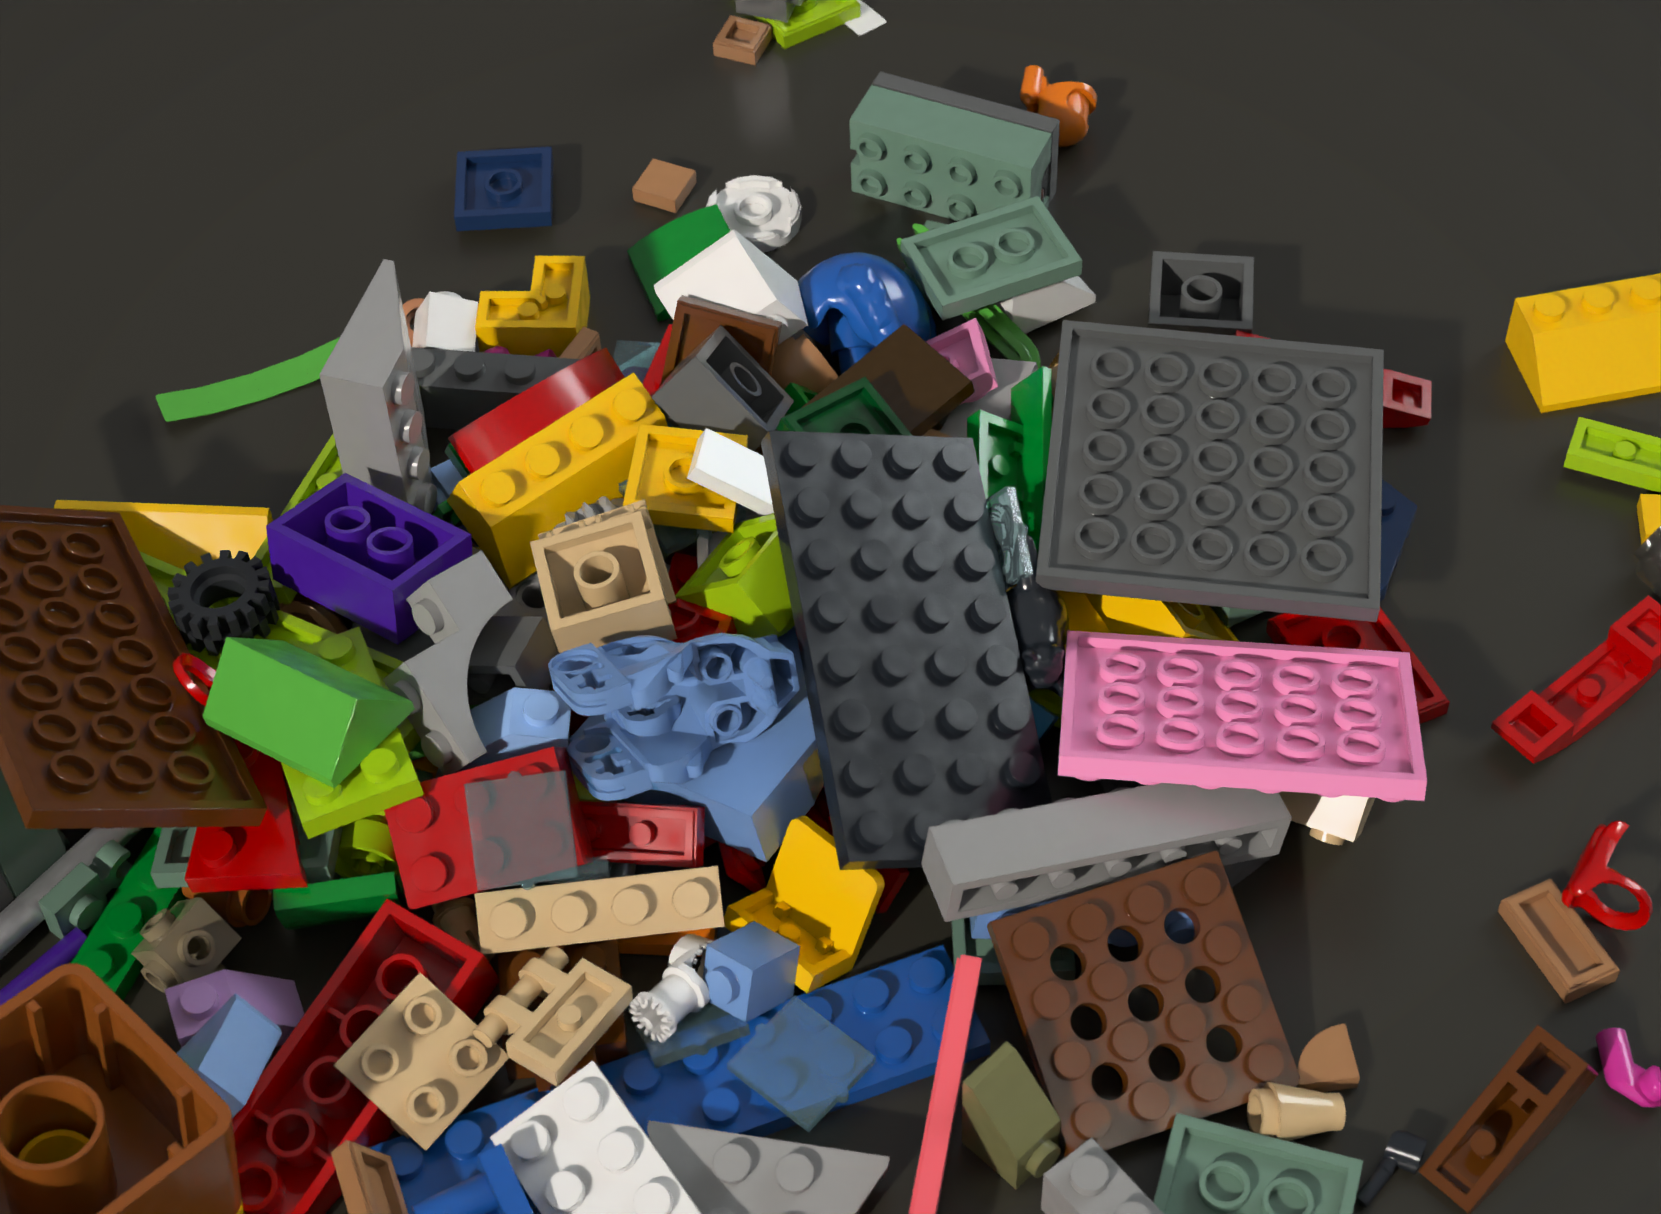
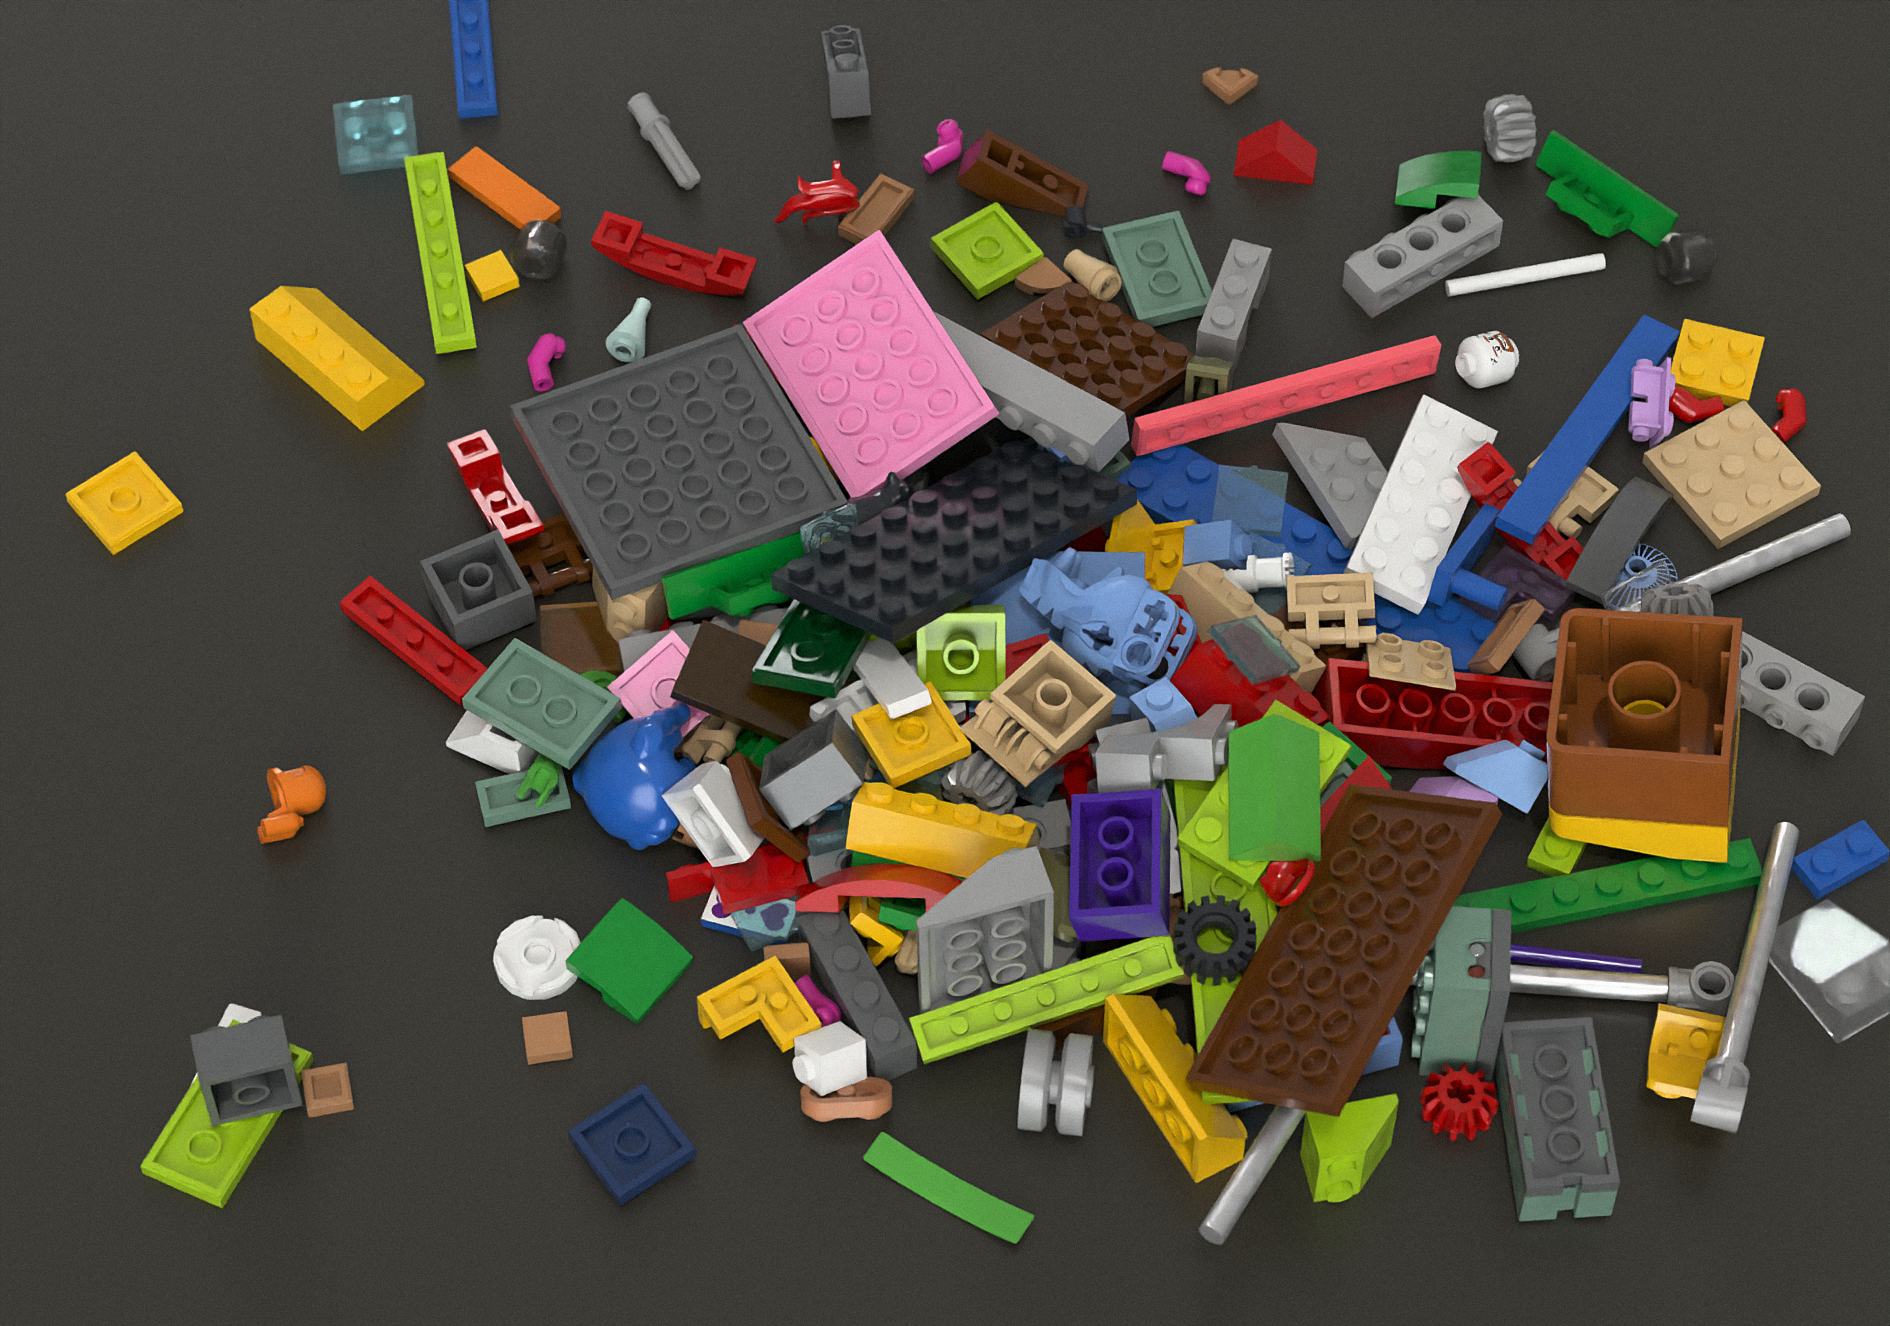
camera: 125 degrees left, 5 degrees up
(249, 460) = (1061, 1082): none -> light grey wheel
(949, 150) = (415, 820): sand green piece -> none
(1128, 270) = (413, 638): none -> red plate
(1411, 1017) = (986, 250): none -> lime plate
(1489, 593) = (628, 338): none -> light aqua cone
(1506, 506) = (538, 360): none -> dark pink arm
(1520, 135) = (124, 502): none -> yellow tile

